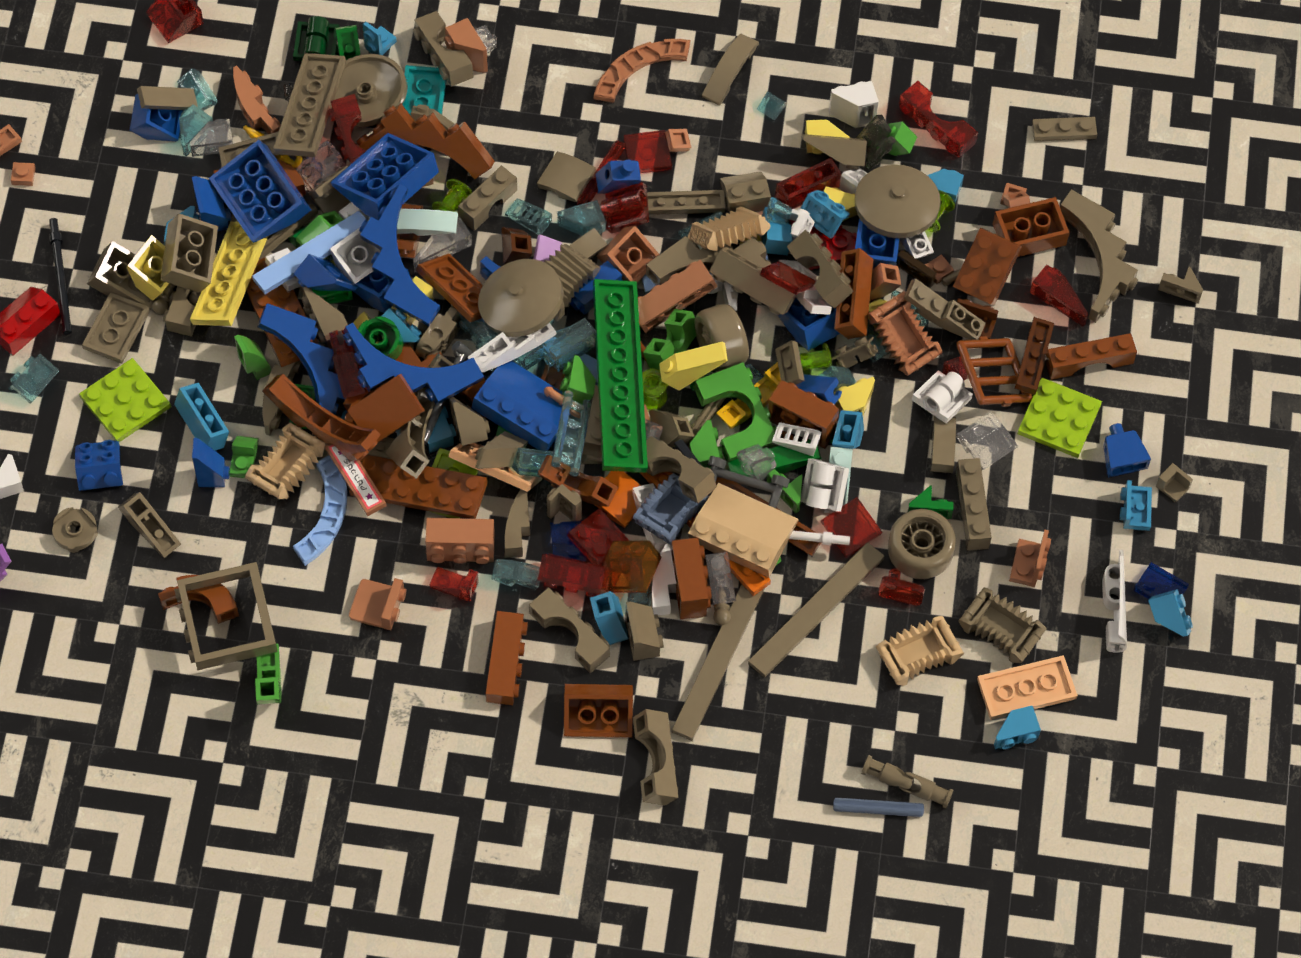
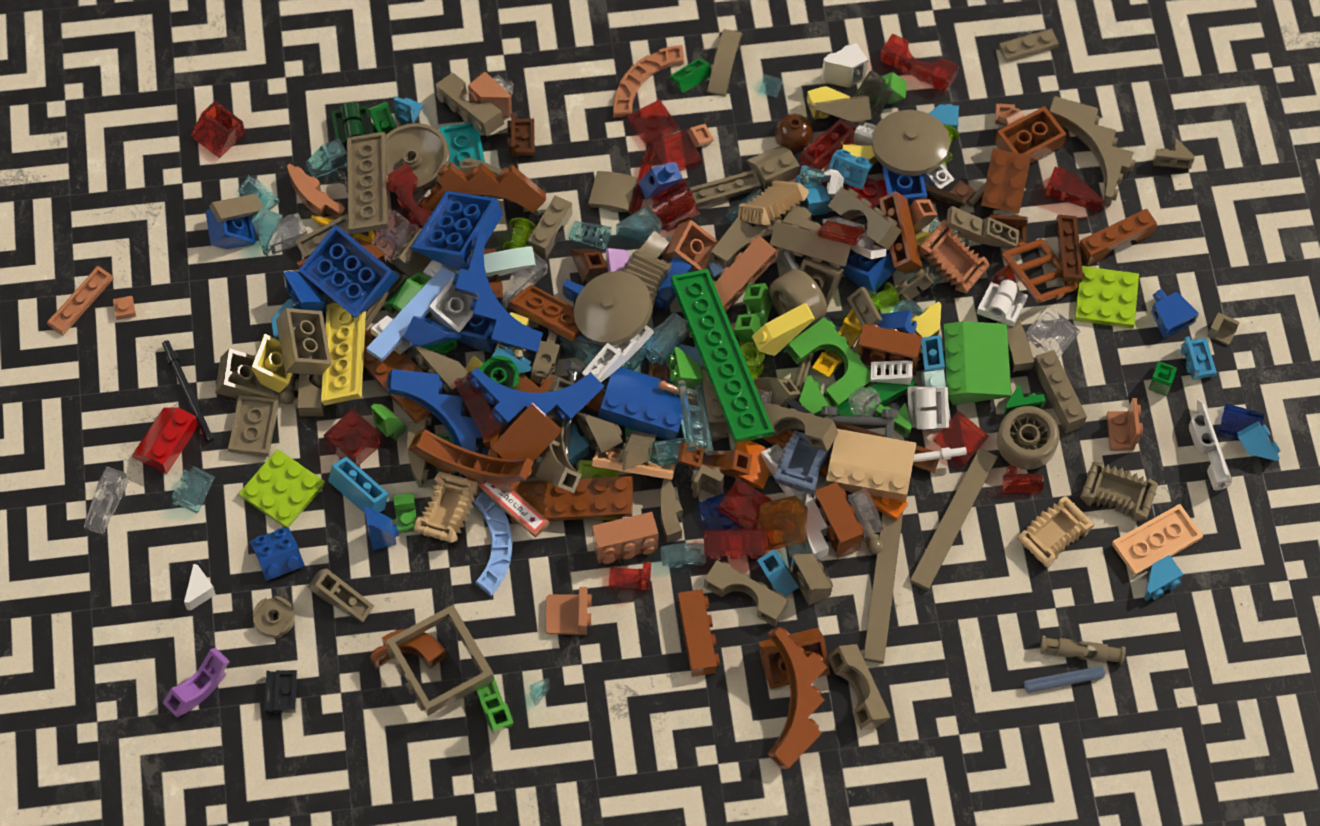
camera: 15 degrees left, 0 degrees up
(58, 606) = (281, 691): none -> black plate
(213, 366) = (353, 438): none -> clear red brick
(278, 70) = (327, 159): none -> clear light blue slope
(322, 674) = (538, 690): none -> clear light blue slope
(489, 95) = (522, 136): none -> reddish brown bracket
(593, 754) = (804, 699): none -> dark orange arch
(633, 114) = (653, 122): none -> clear red tile
(690, 74) = (691, 75): none -> green slope
(758, 323) = (824, 275): none -> dark tan slope
(779, 161) = (794, 132): none -> reddish brown cylinder
(892, 450) = (976, 361): none -> bright green slope
(1089, 517) = (1162, 378): none -> green slope

